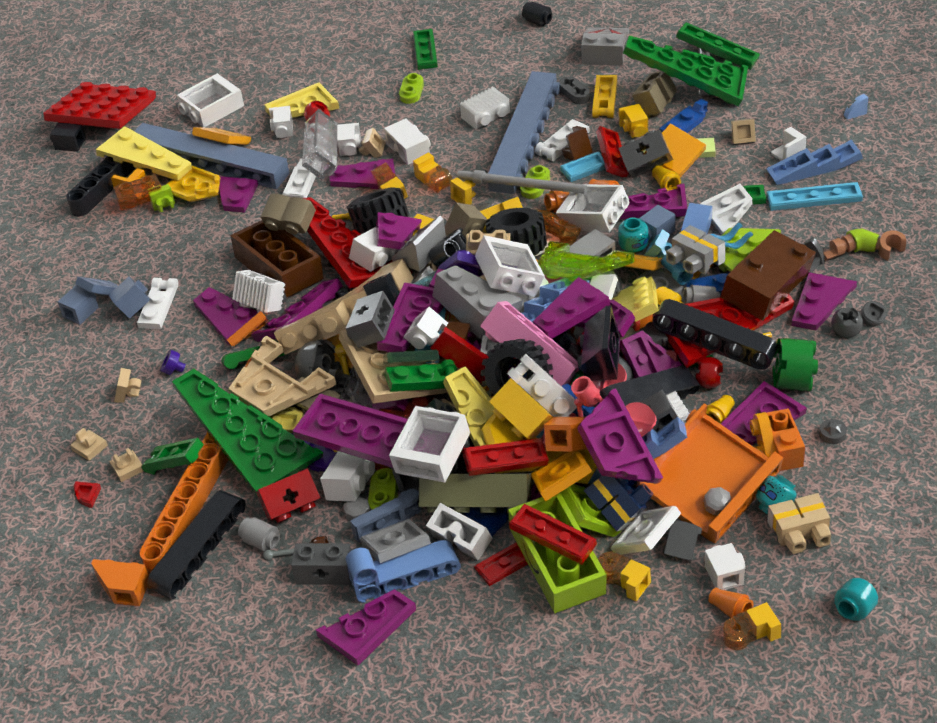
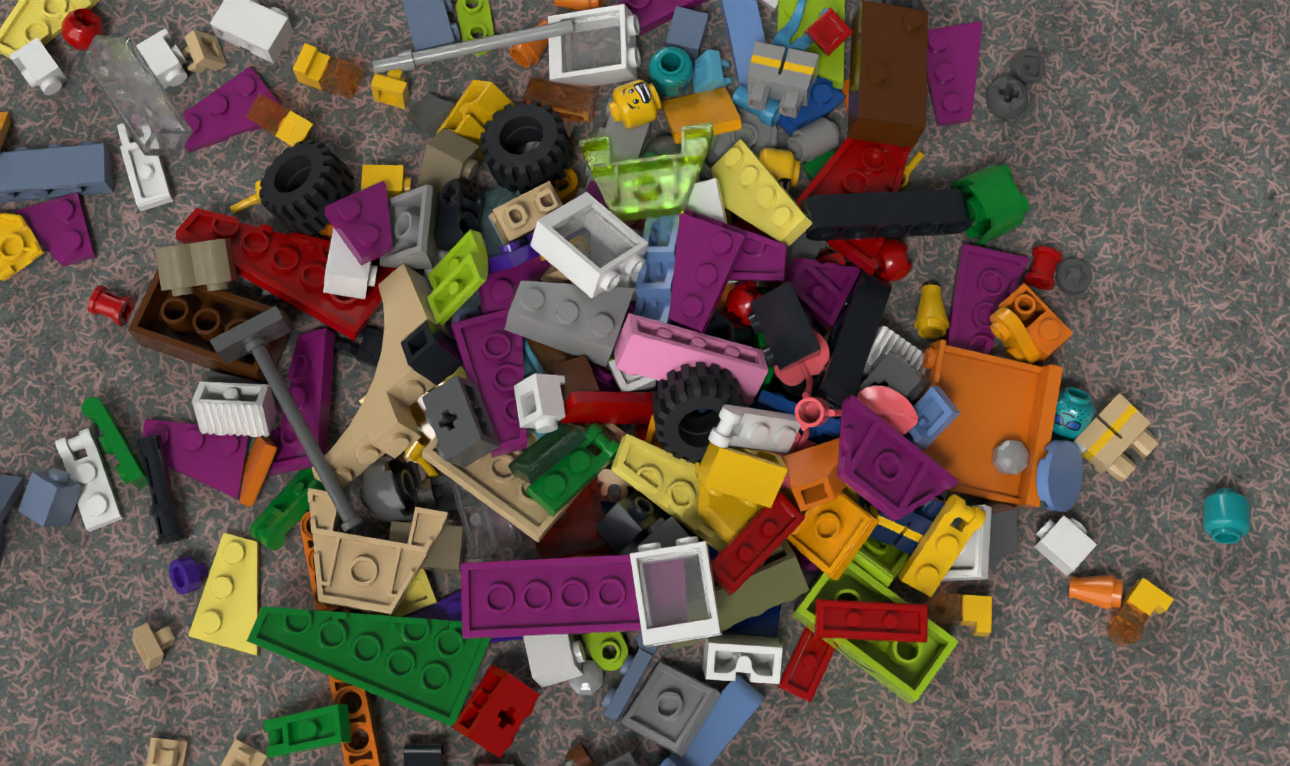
camera: 35 degrees left, 30 degrees up
(169, 398) = (230, 596): none -> light yellow wing
(184, 290) = (115, 442): none -> green plate
(186, 325) = (164, 506): none -> black pin
(229, 227) = (111, 305): none -> red bush
(286, 248) = (253, 338): none -> dark grey tile
(425, 265) = (458, 276): none -> lime slope
(595, 234) = (634, 104): none -> yellow head
(631, 518) = (941, 545): none -> yellow plate
(743, 242) = (828, 31): none -> red tile
(745, 522) = (1060, 476): none -> medium blue tile
(812, 416) = (1043, 268): none -> red bush

